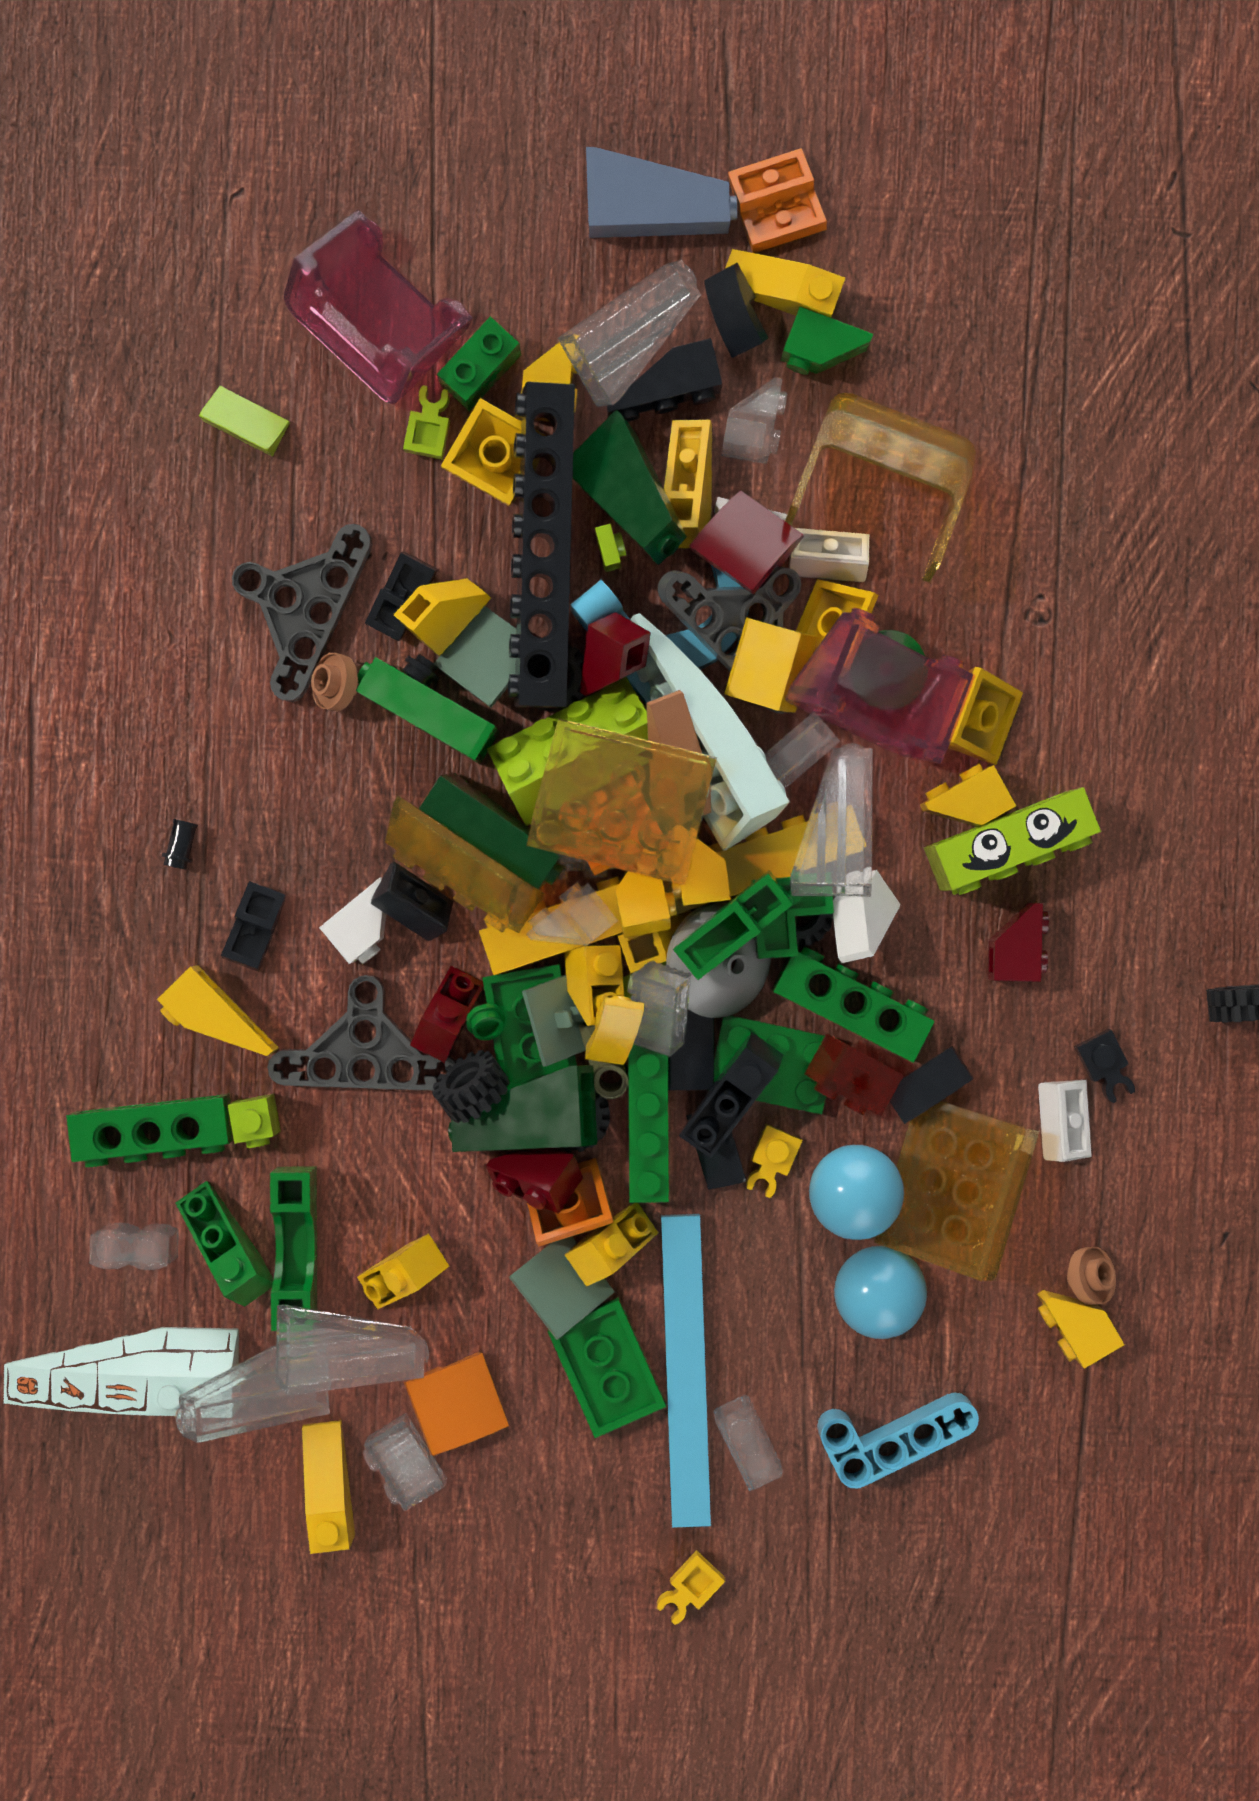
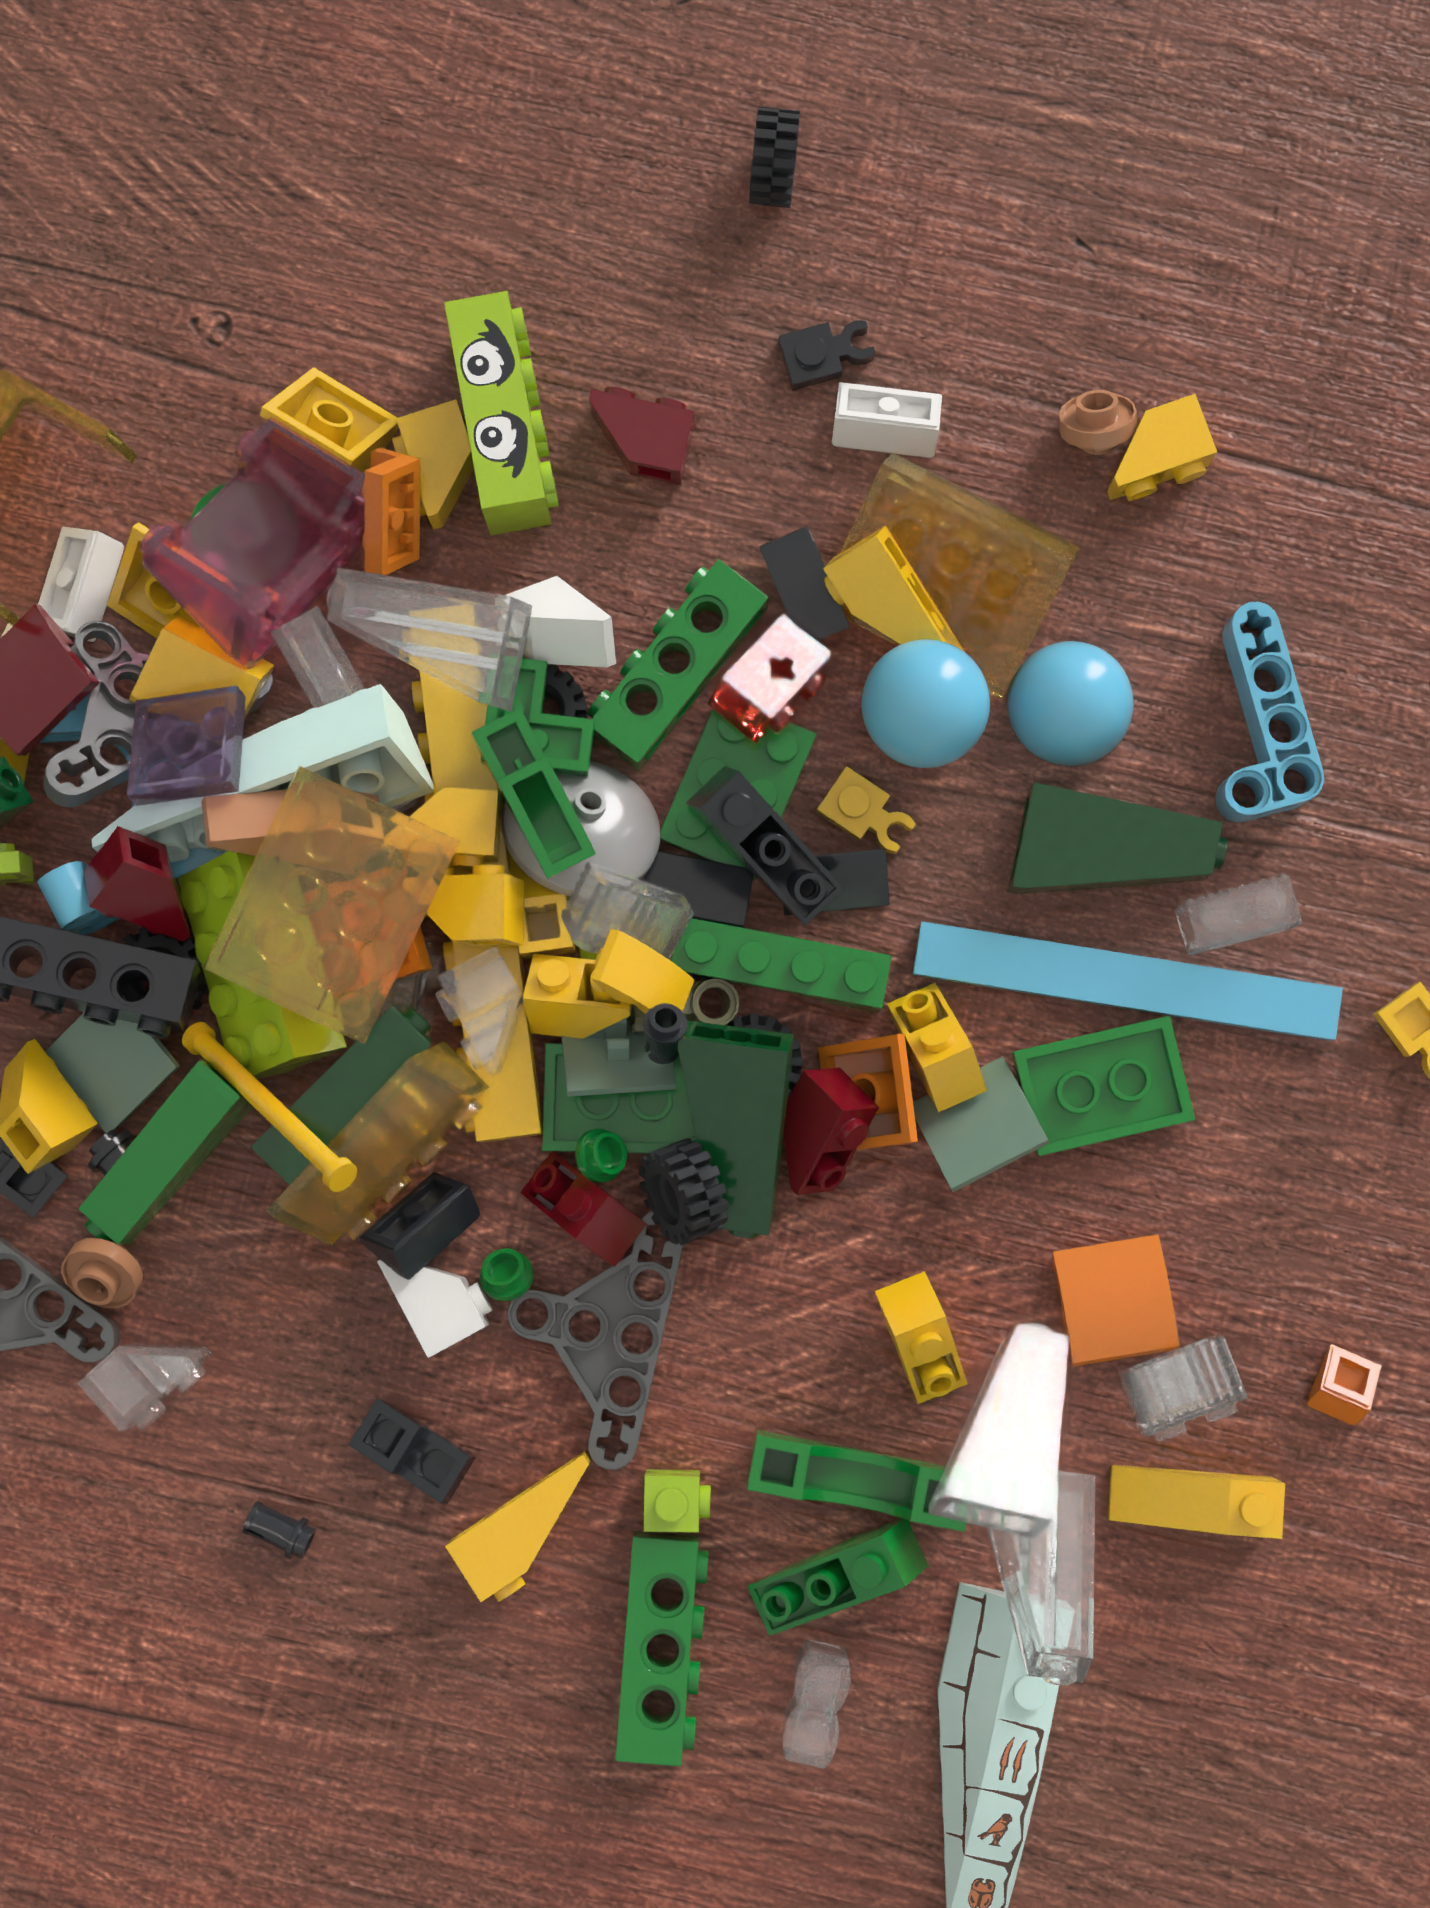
camera: 75 degrees left, 5 degrees down
(268, 724) = (138, 1377): none -> clear slope
(389, 969) = (506, 1274): none -> green plate
(428, 1575) = (1344, 1386): none -> orange slope
(431, 846) = (336, 1171): none -> yellow bar
(581, 1053) = (664, 1028): none -> black pin
(718, 670) = (186, 745): none -> clear purple plate
(781, 1330) = (1103, 842): none -> dark green slope
(923, 777) = (391, 511): none -> orange bracket
(934, 1147) = (885, 591): none -> yellow slope

